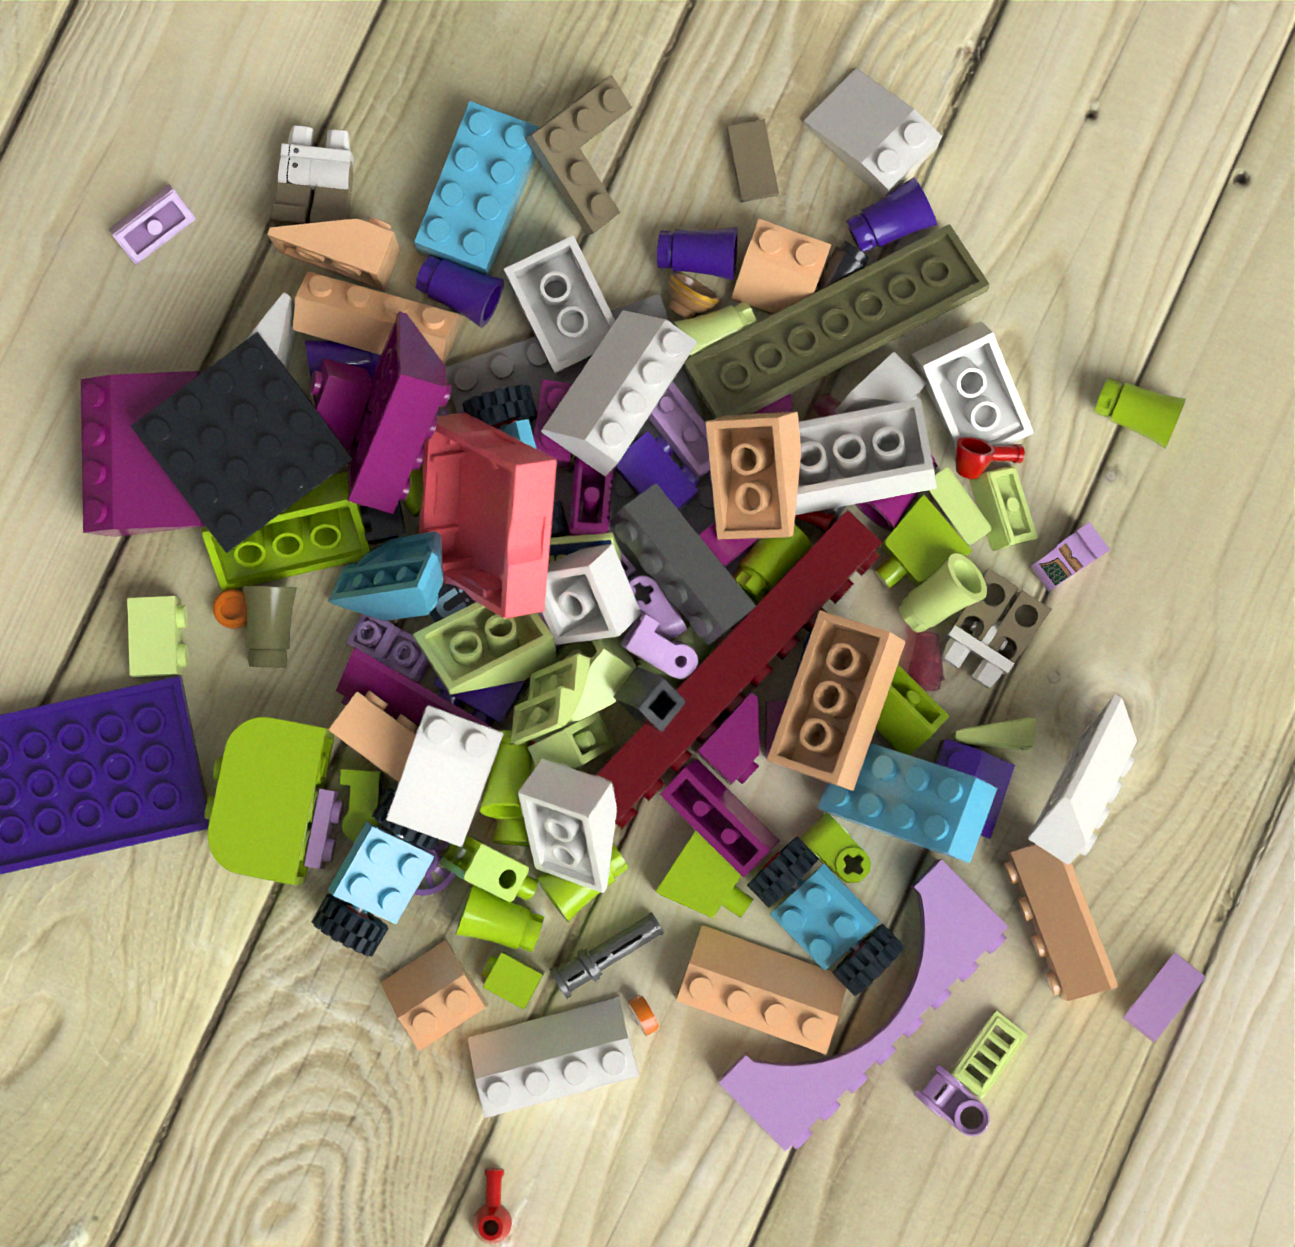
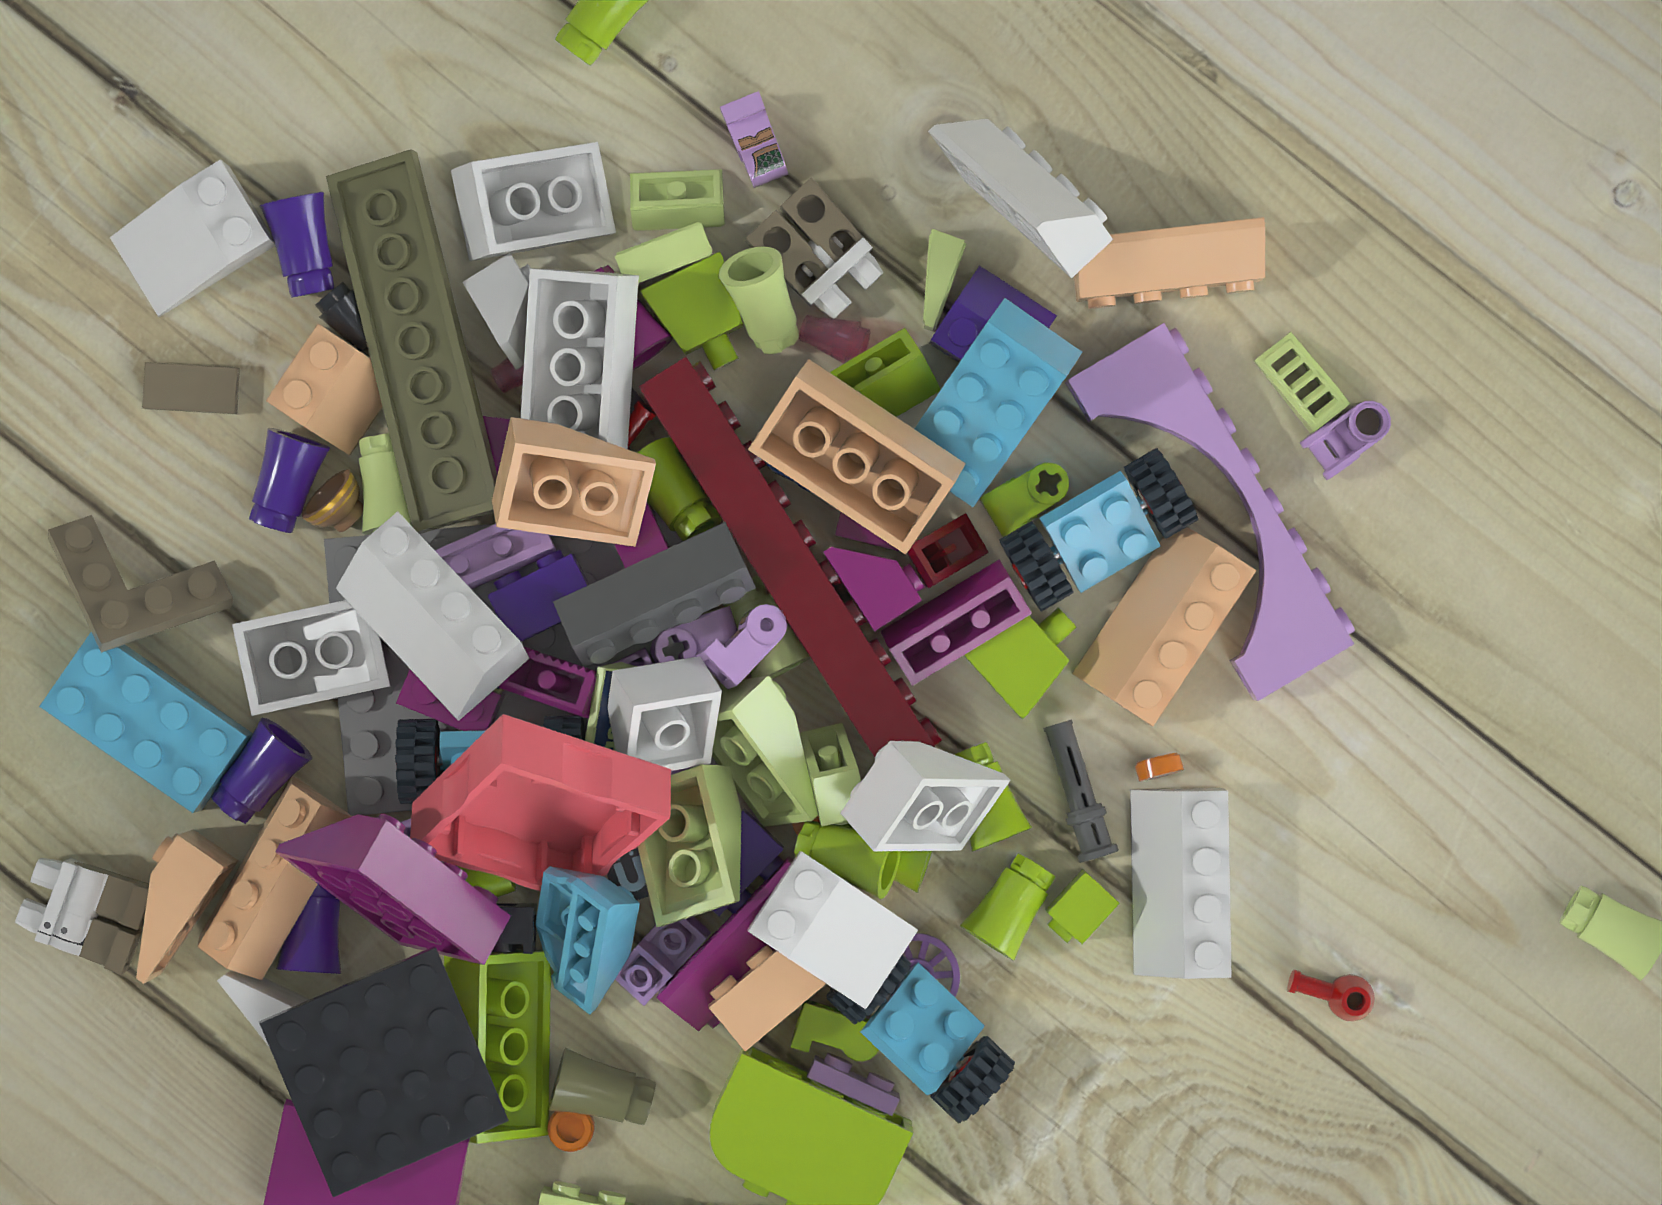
camera: 75 degrees left, 5 degrees up
(152, 224) = (90, 1115): lavender slope -> none
(341, 397) = (356, 943): magenta slope -> none
(433, 995) = (1076, 1002): light nougat slope -> none
(489, 869) = (949, 903): torso -> none
(551, 700) = (774, 784): yellowish green slope -> none
(649, 698) = (802, 672): black brick -> none
(776, 796) = (946, 550): none -> dark red slope
(975, 455) = (607, 217): red bar -> none
(1164, 997) = (1288, 164): lavender slope -> none

